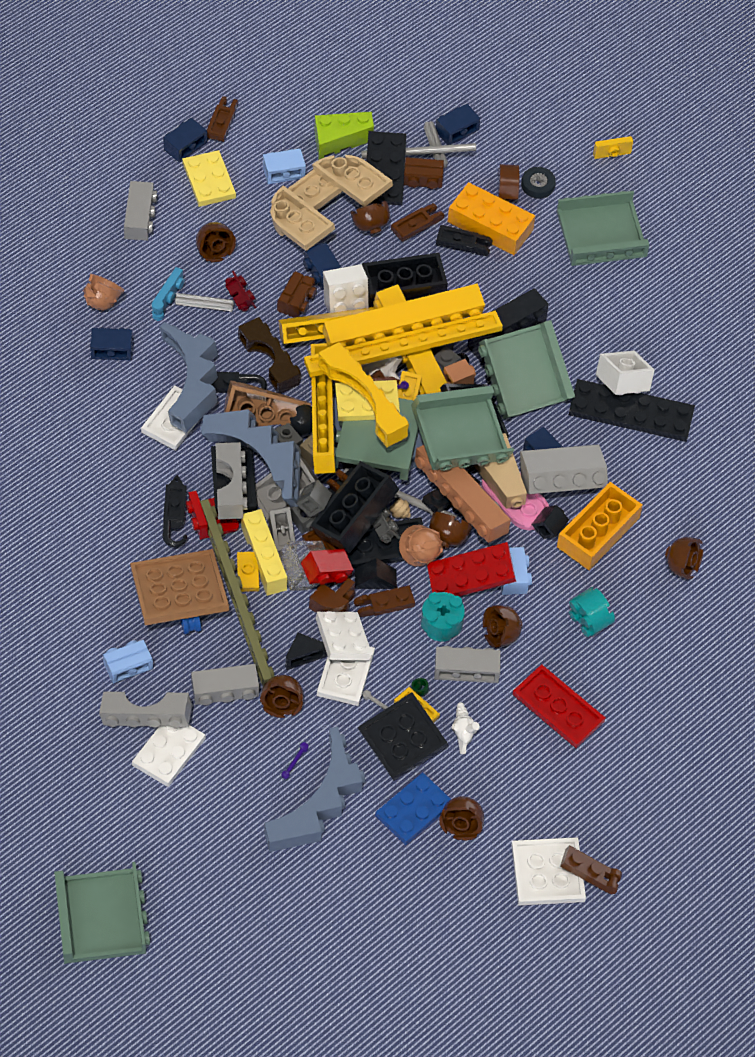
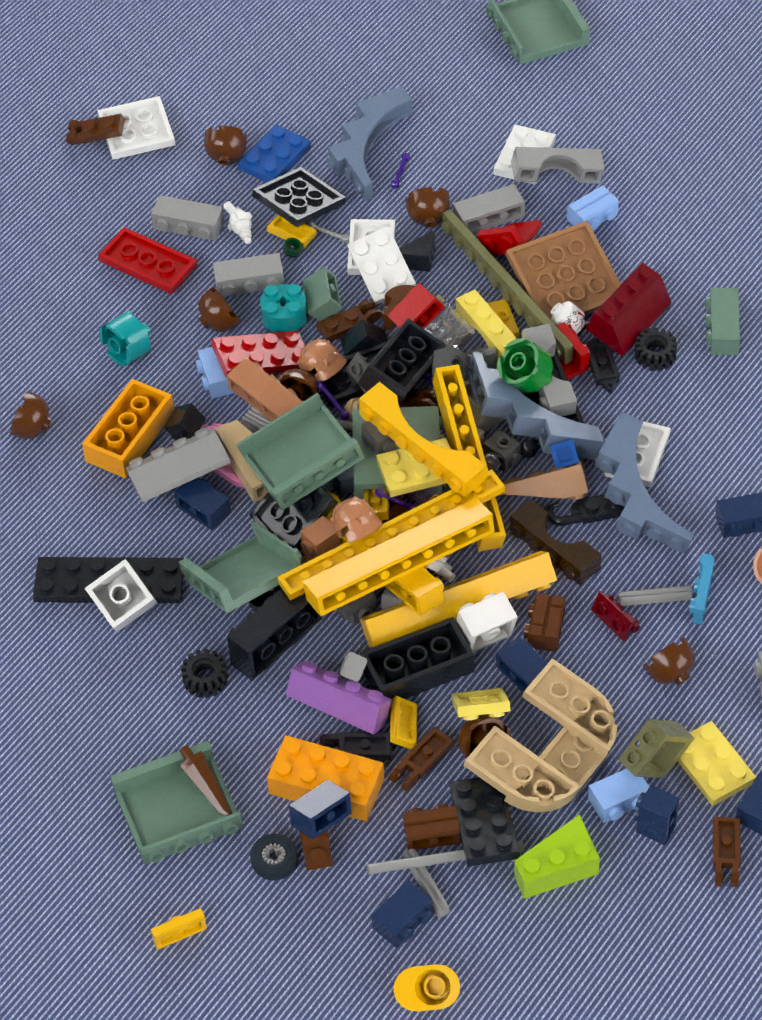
camera: 175 degrees right, 5 degrees down
(55, 518) = (723, 321): none -> sand green brick
(124, 497) = (655, 339): none -> black tyre
(137, 539) = (630, 309): none -> dark red slope
(193, 541) = (568, 313): none -> white head
(215, 640) = (512, 235): none -> red bracket
(234, 172) = (650, 757): none -> olive window
(237, 404) = (564, 453): none -> blue plate
(252, 463) = (525, 365): none -> green brick
(263, 136) = (657, 814): none -> dark blue brick
(366, 232) = (480, 702): none -> light yellow plate
(404, 623) = (322, 294): none -> sand green brick
(426, 242) = (403, 722): none -> yellow plate
(426, 522) = (343, 414): none -> dark purple hinge
(430, 354) = (354, 519): none -> nougat helmet
(450, 76) = (427, 987): none -> yellow piece
(456, 274) = (352, 666): none -> light grey slope
(470, 266) = (338, 697): none -> medium lavender brick
(503, 173) = (320, 809): none -> dark blue brick
(513, 743) = (187, 217): none -> light grey brick
(570, 307) = (204, 685): none -> black tyre
(581, 231) = (201, 775): none -> reddish brown bar

